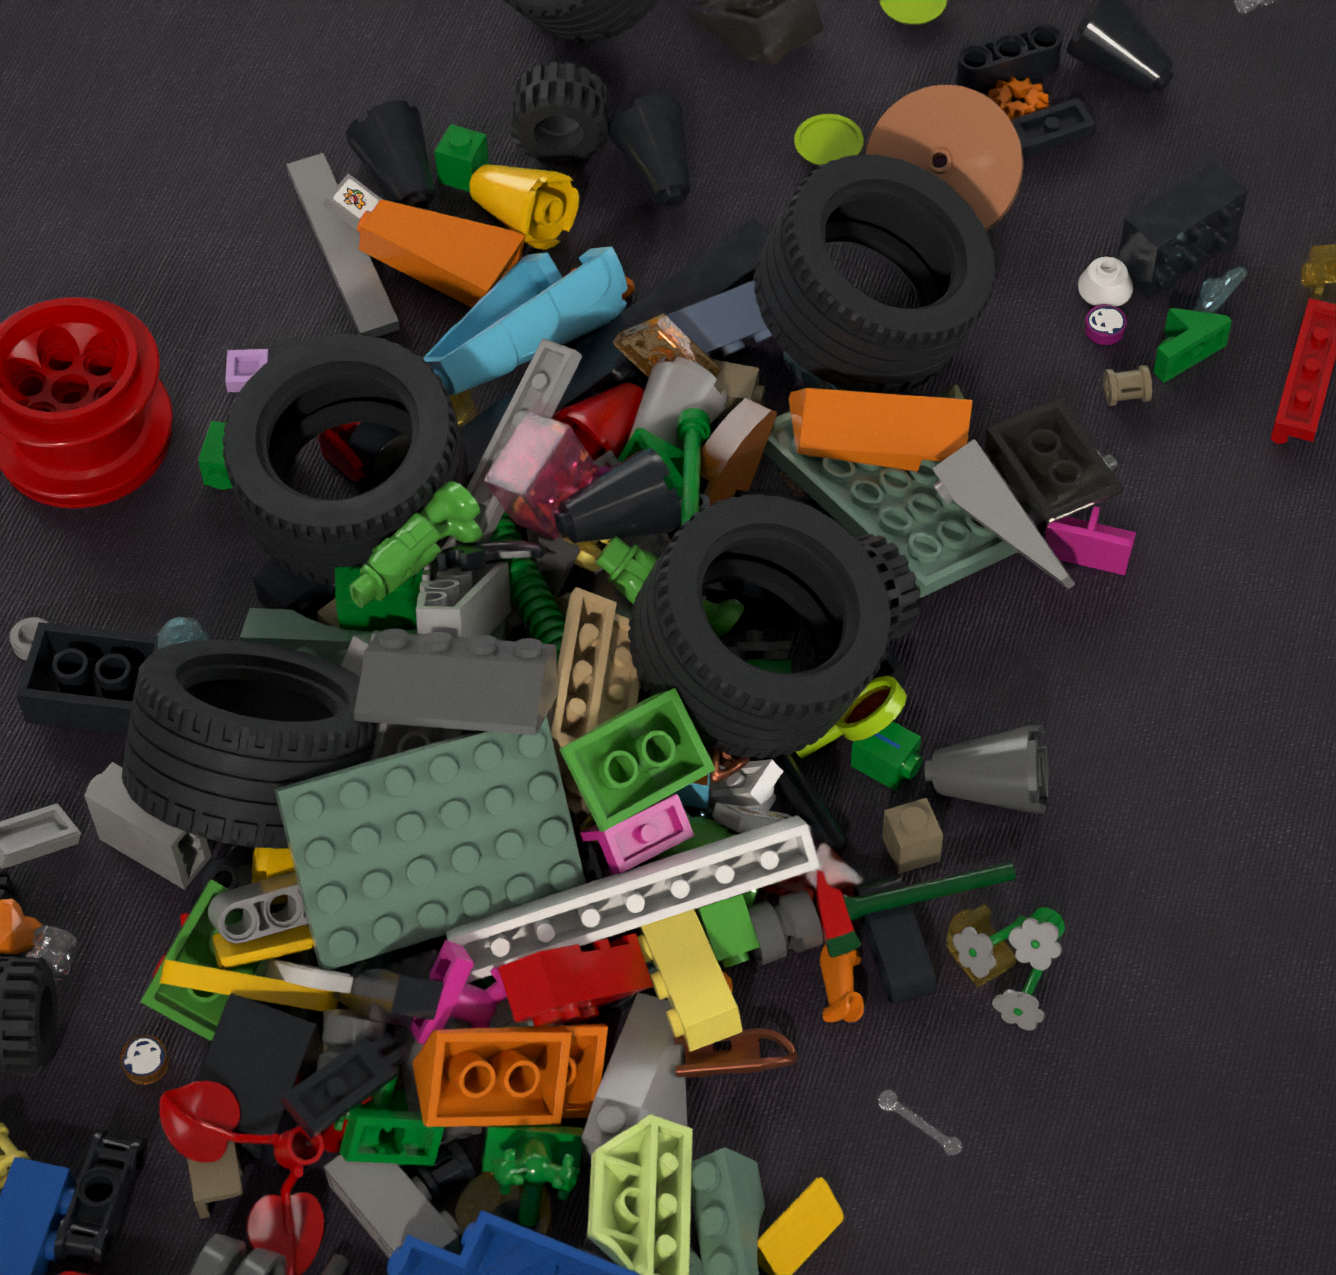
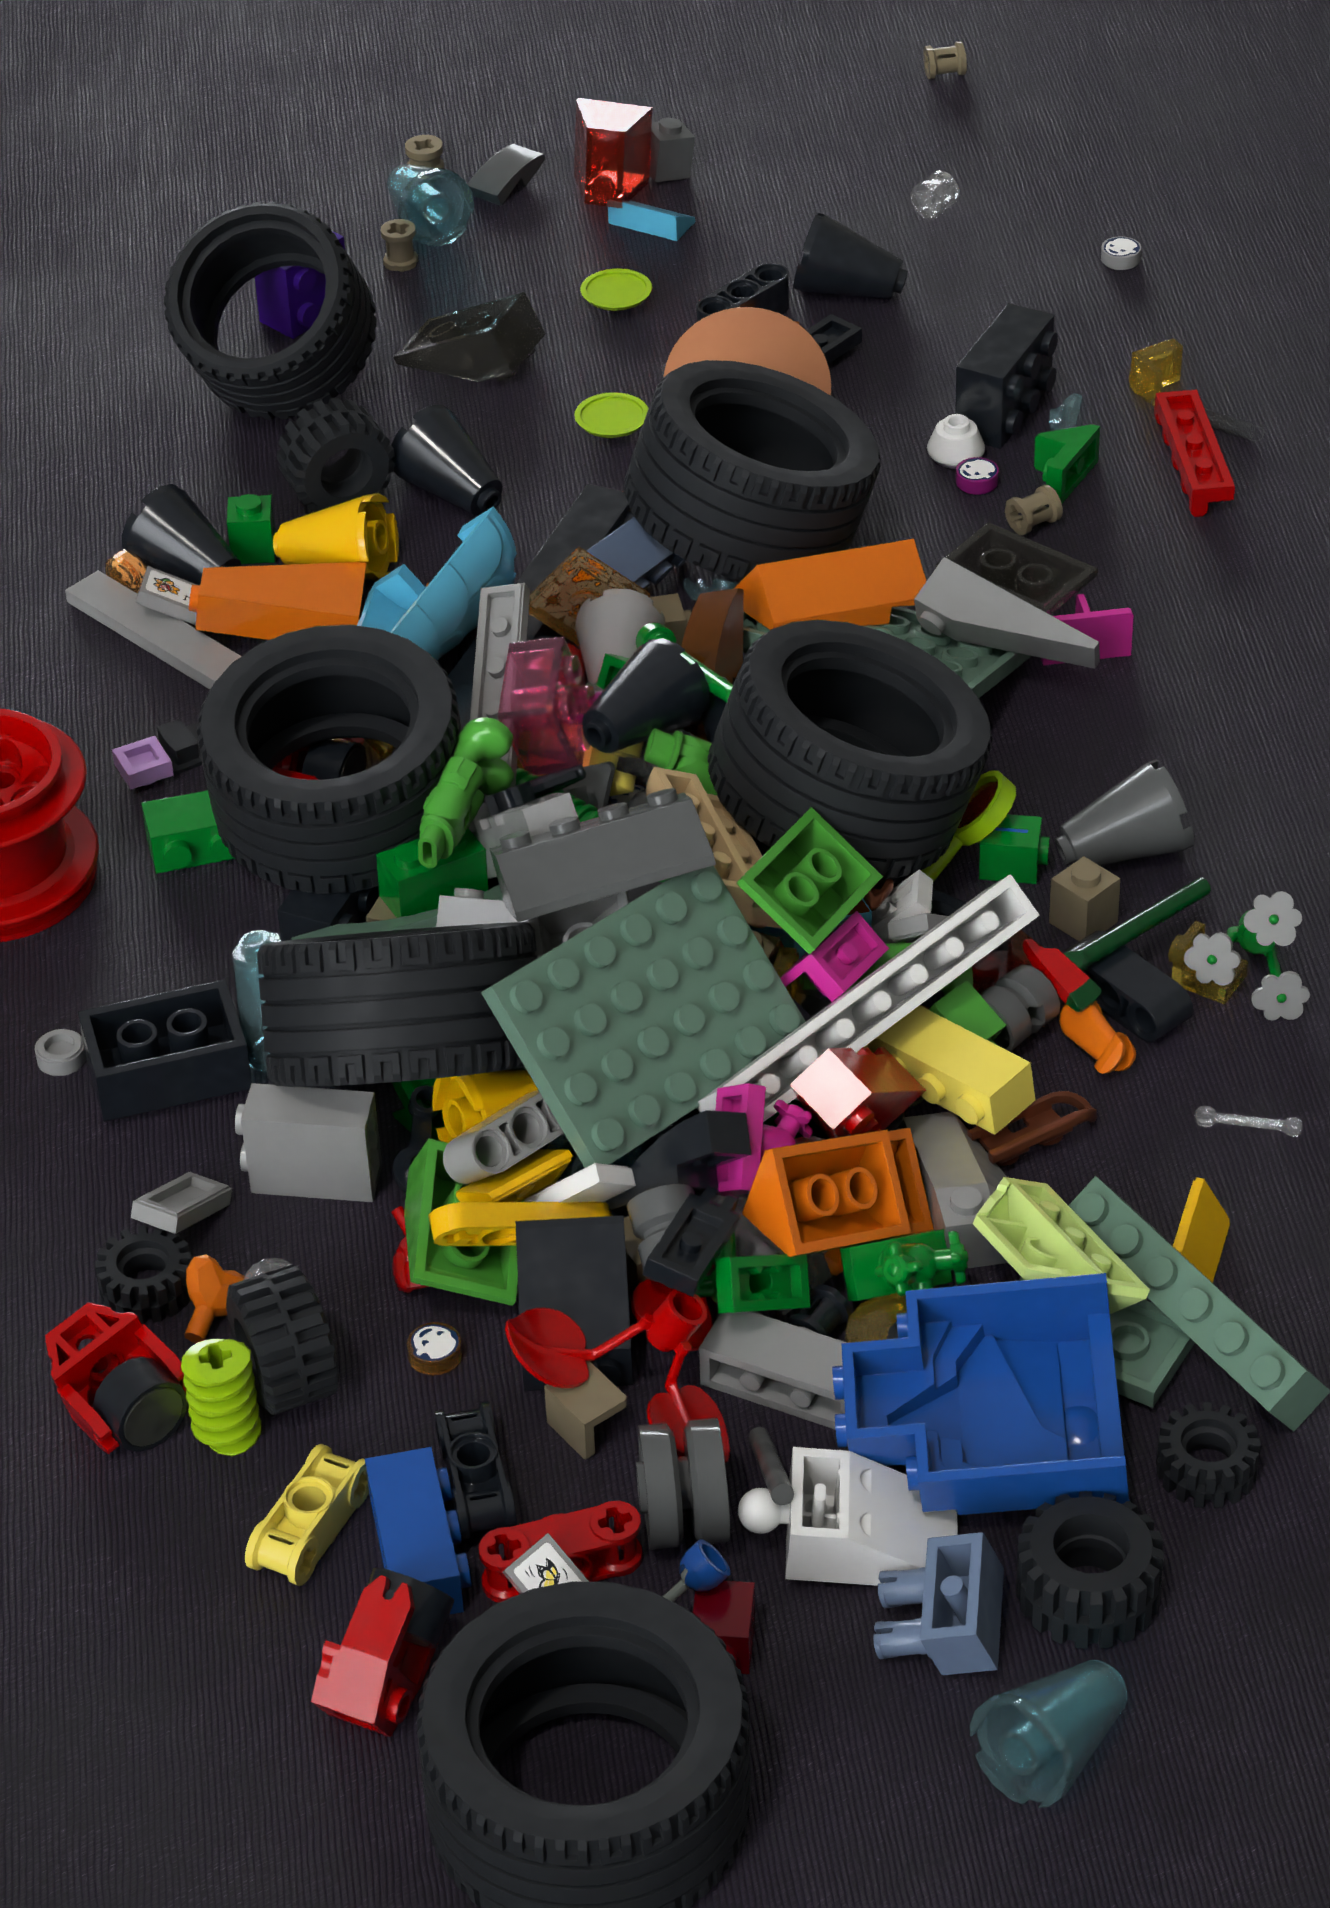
camera: 25 degrees left, 15 degrees down
(340, 163) = (126, 569): none -> clear orange tile

